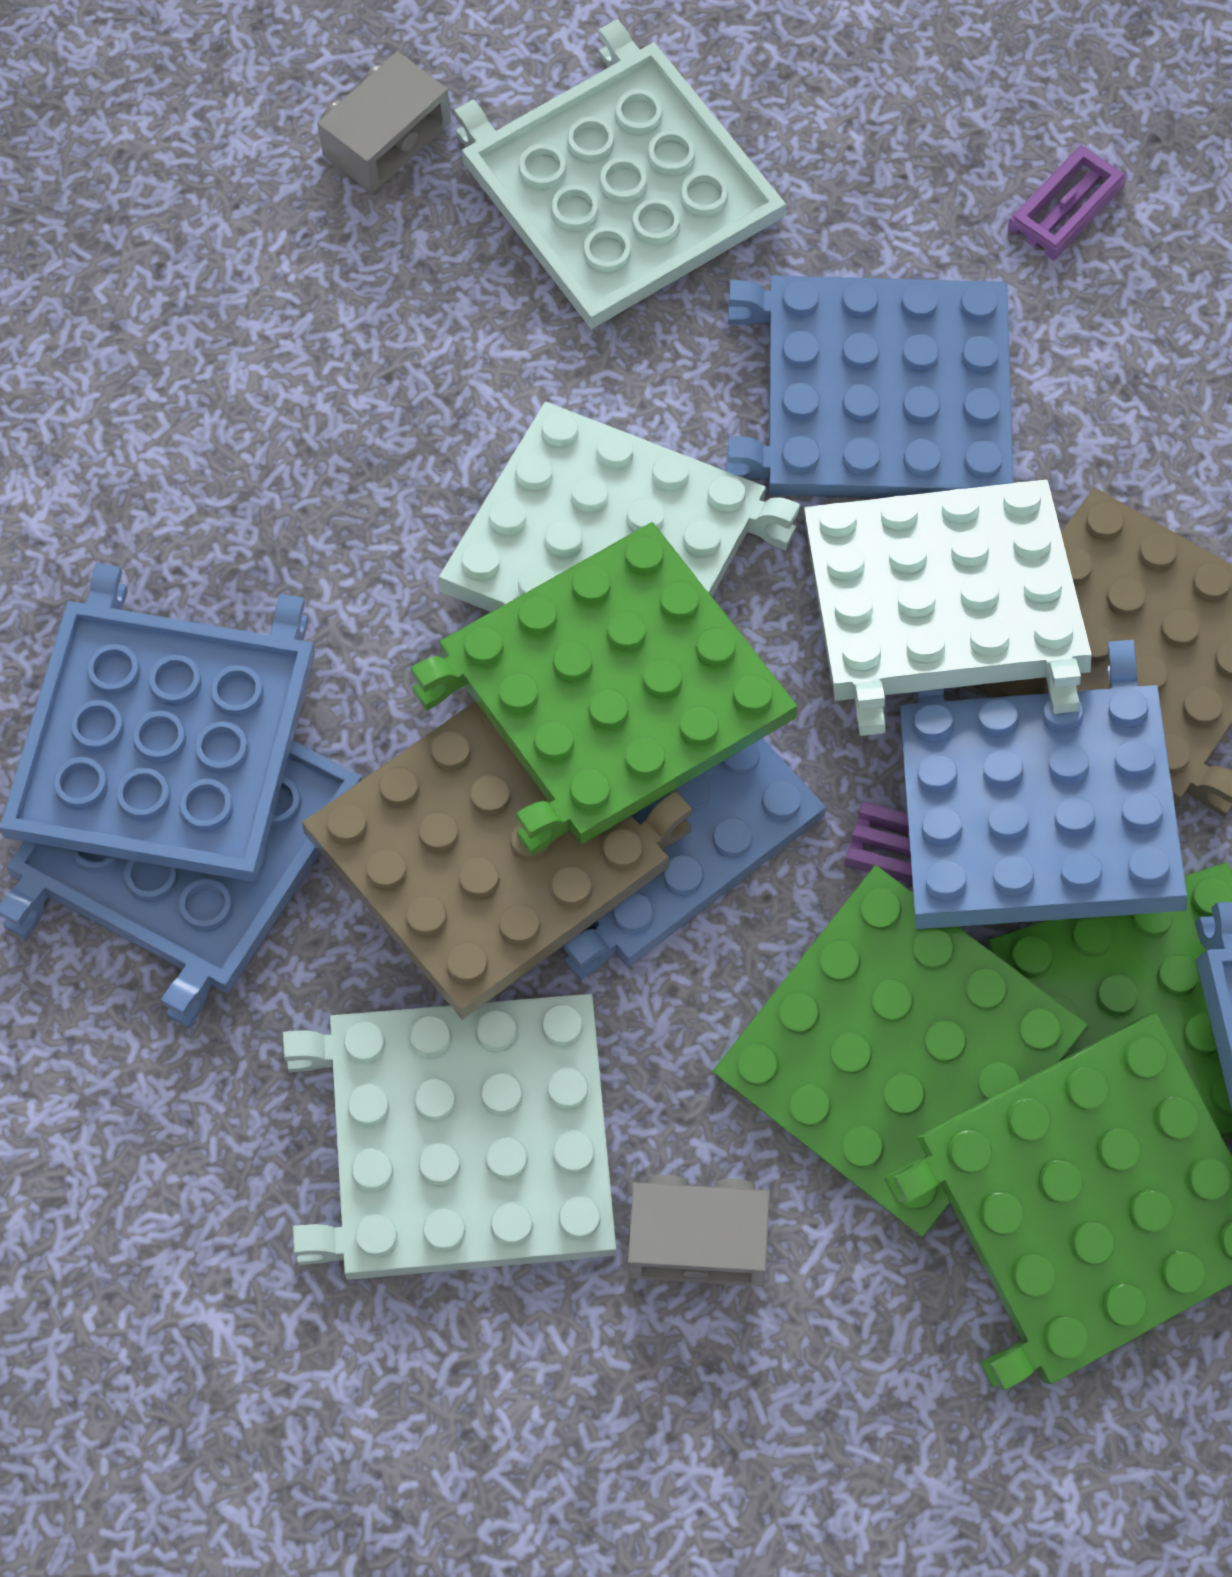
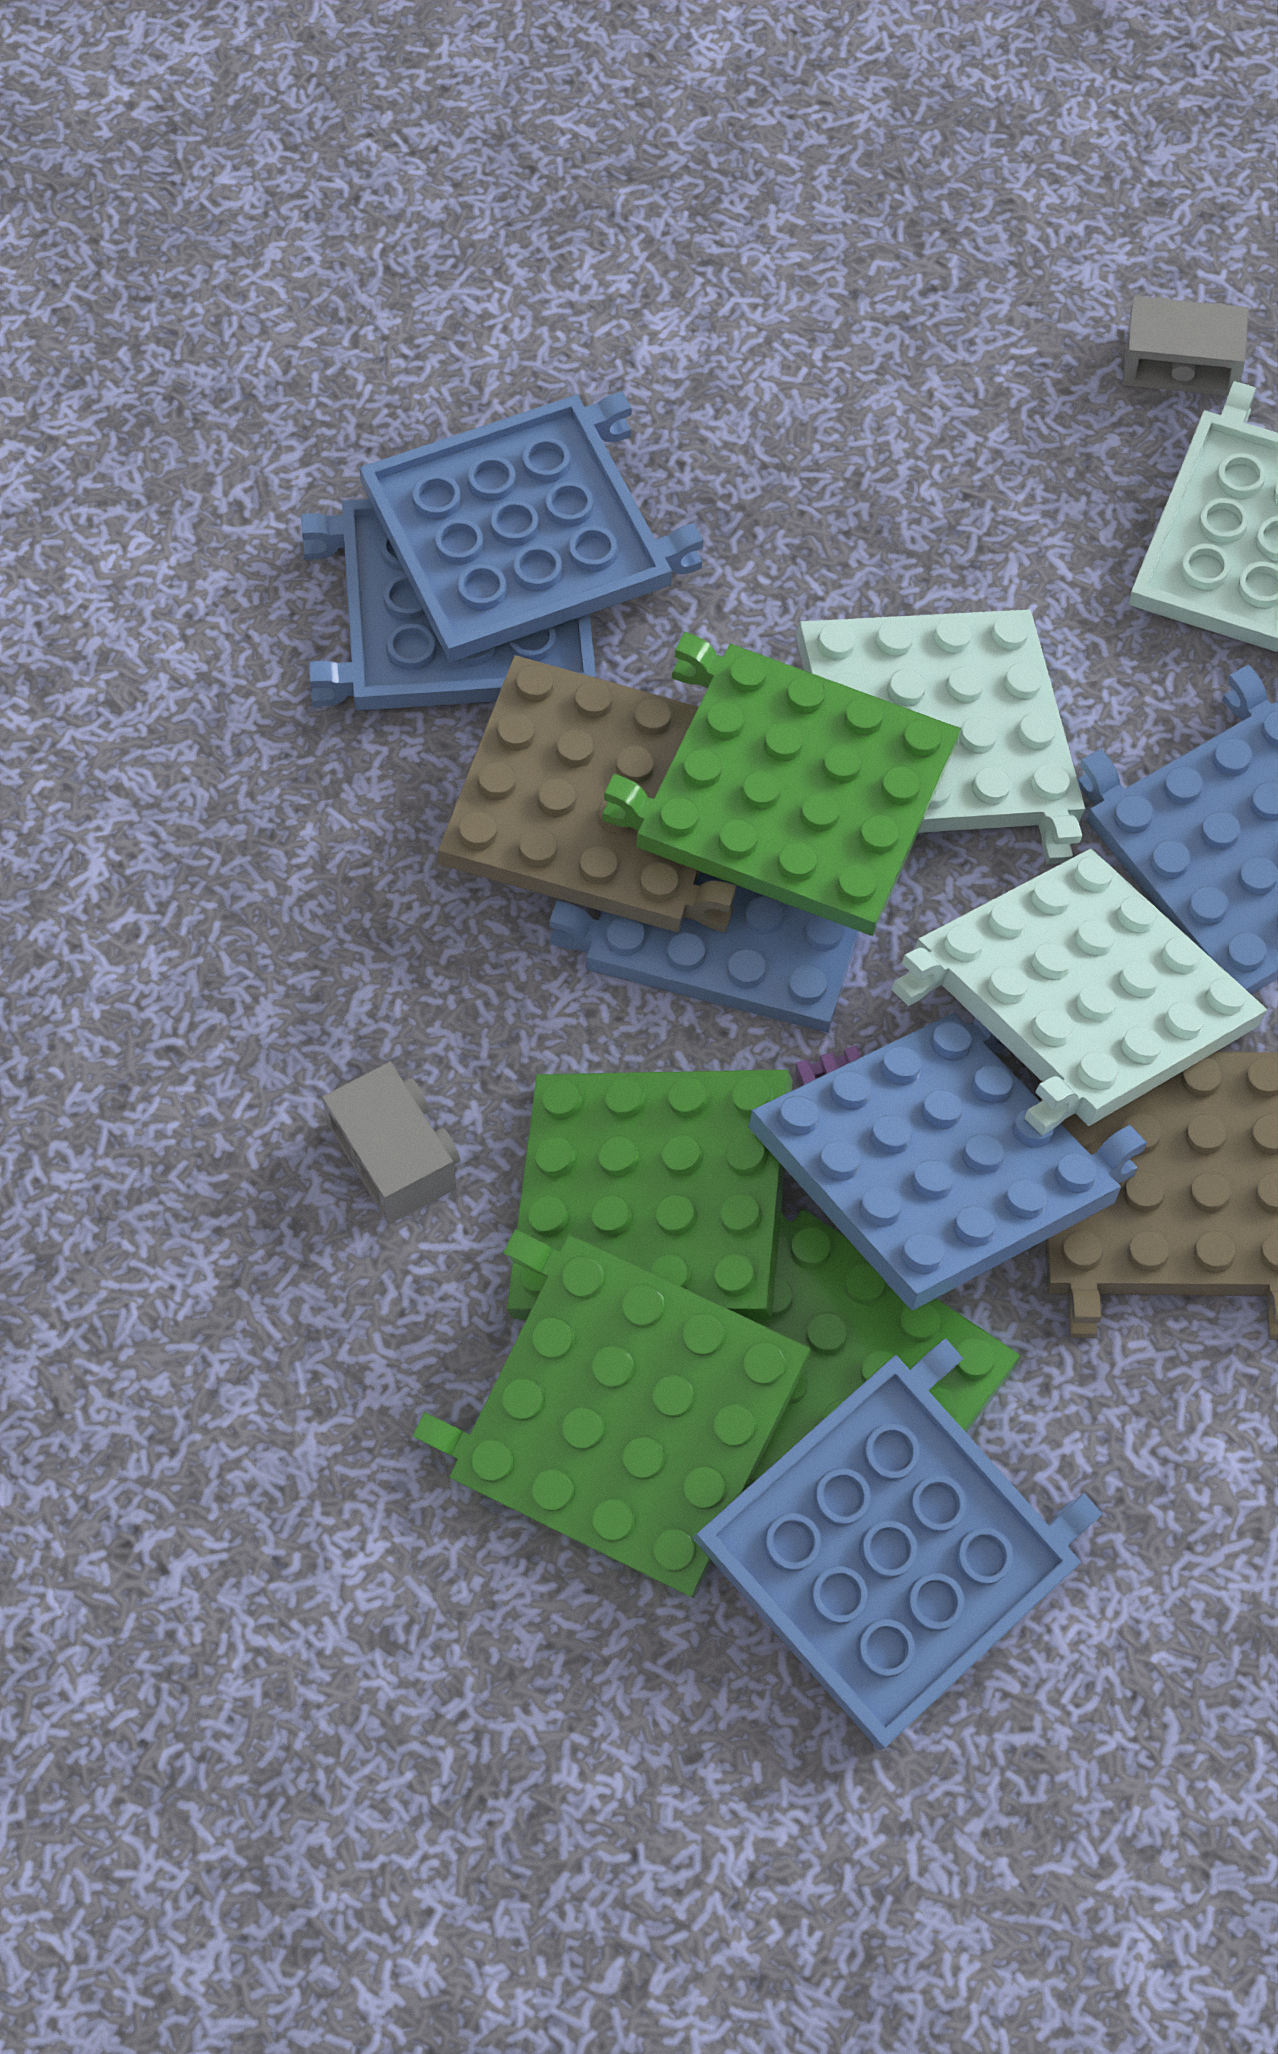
camera: 55 degrees right, 5 degrees down
(463, 1138) = (357, 936): light aqua plate -> none

